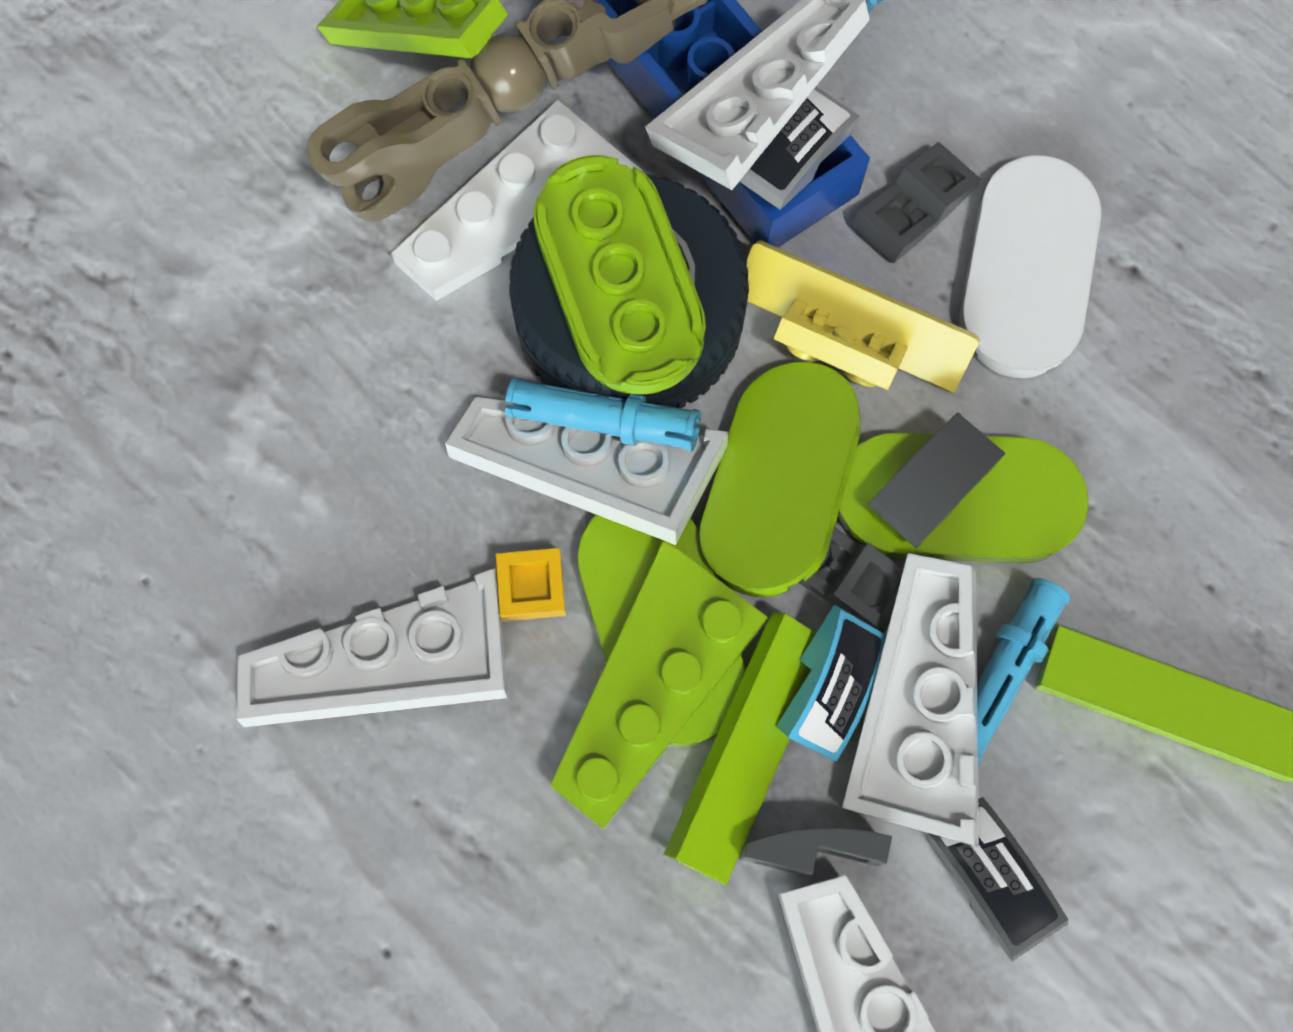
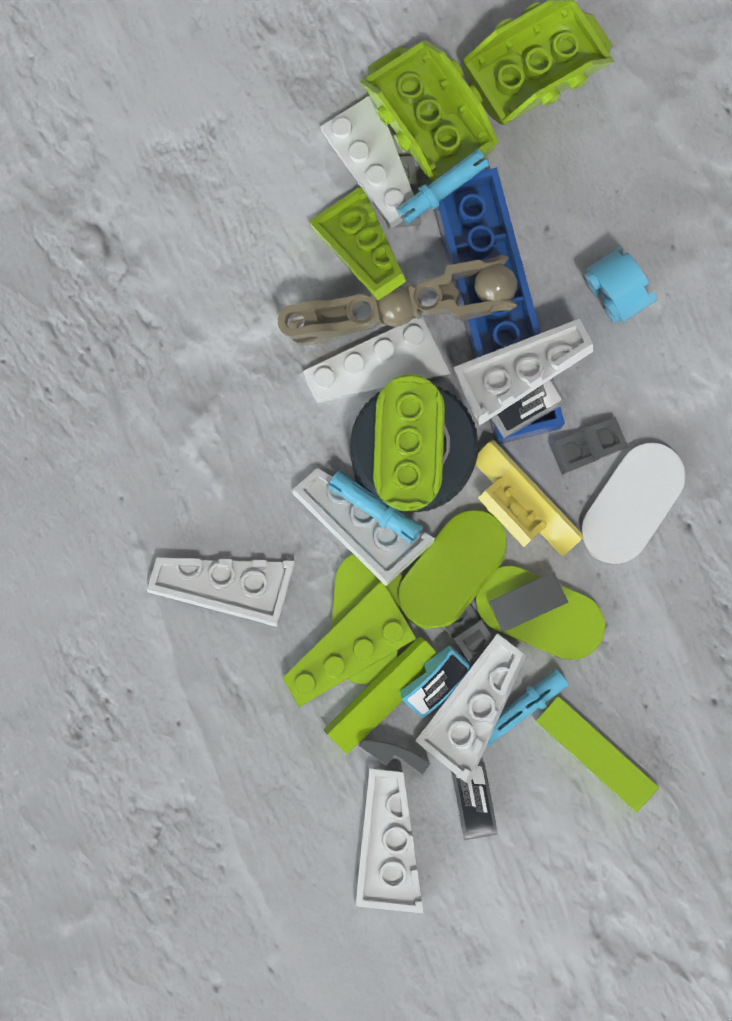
camera: 20 degrees right, 10 degrees up
(530, 584) = (309, 575): yellow plate -> none

